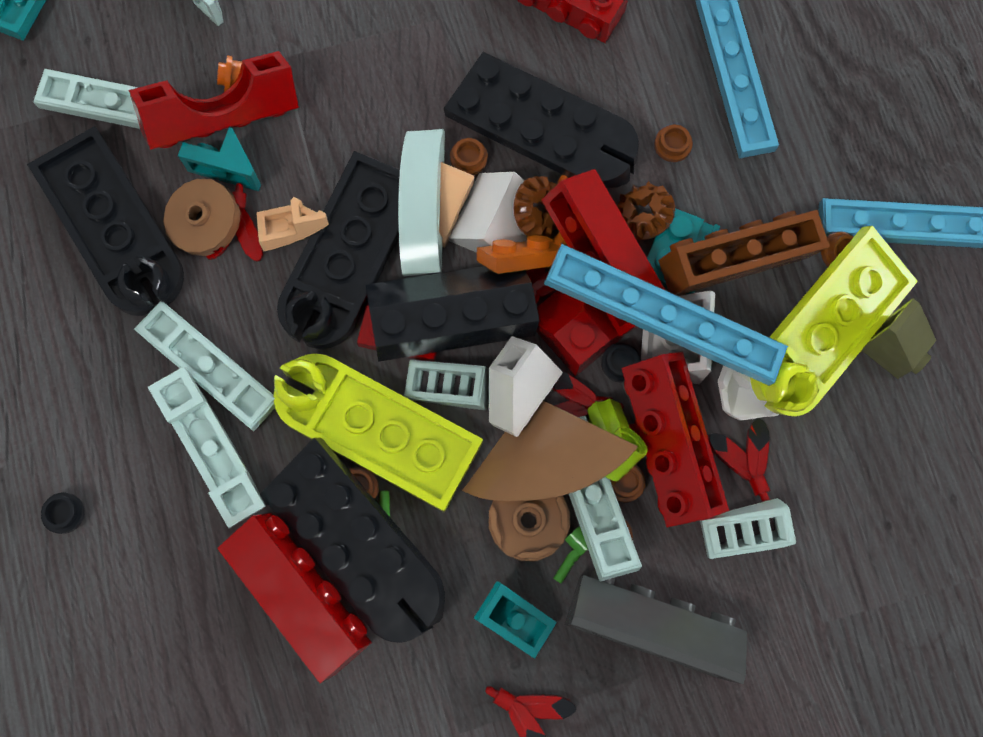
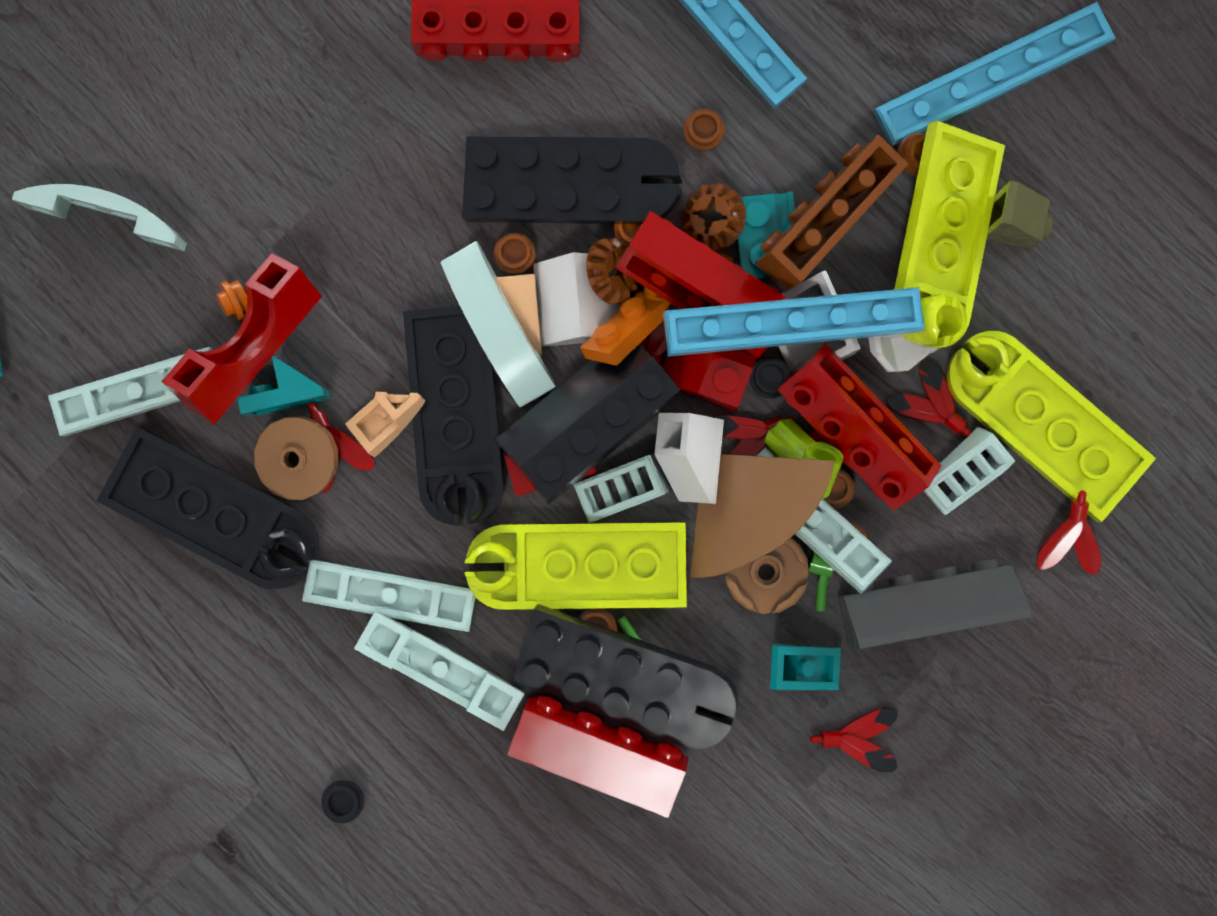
camera: 25 degrees left, 10 degrees up
(817, 636) = (1072, 532): none -> red piece
(841, 528) = (1046, 421): none -> neon yellow plate

